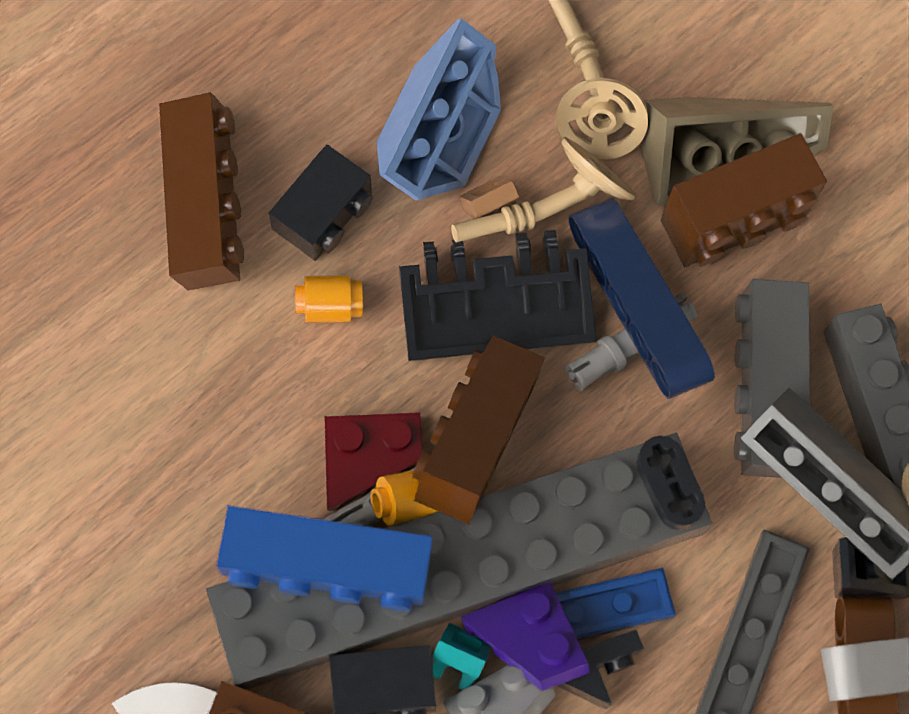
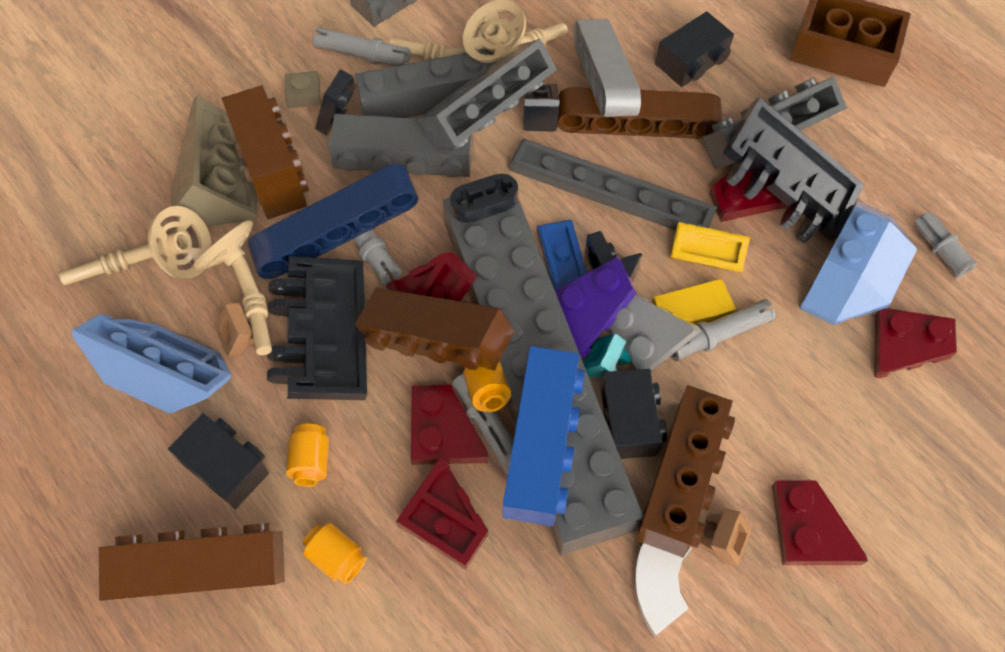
camera: 85 degrees left, 10 degrees down
(212, 337) = (333, 553): none -> light orange brick
(255, 459) = (444, 517): none -> dark red wing
(550, 430) = (441, 278): none -> dark red wing
(835, 284) = (335, 100): none -> black wing
(873, 242) = (302, 89): none -> dark tan plate

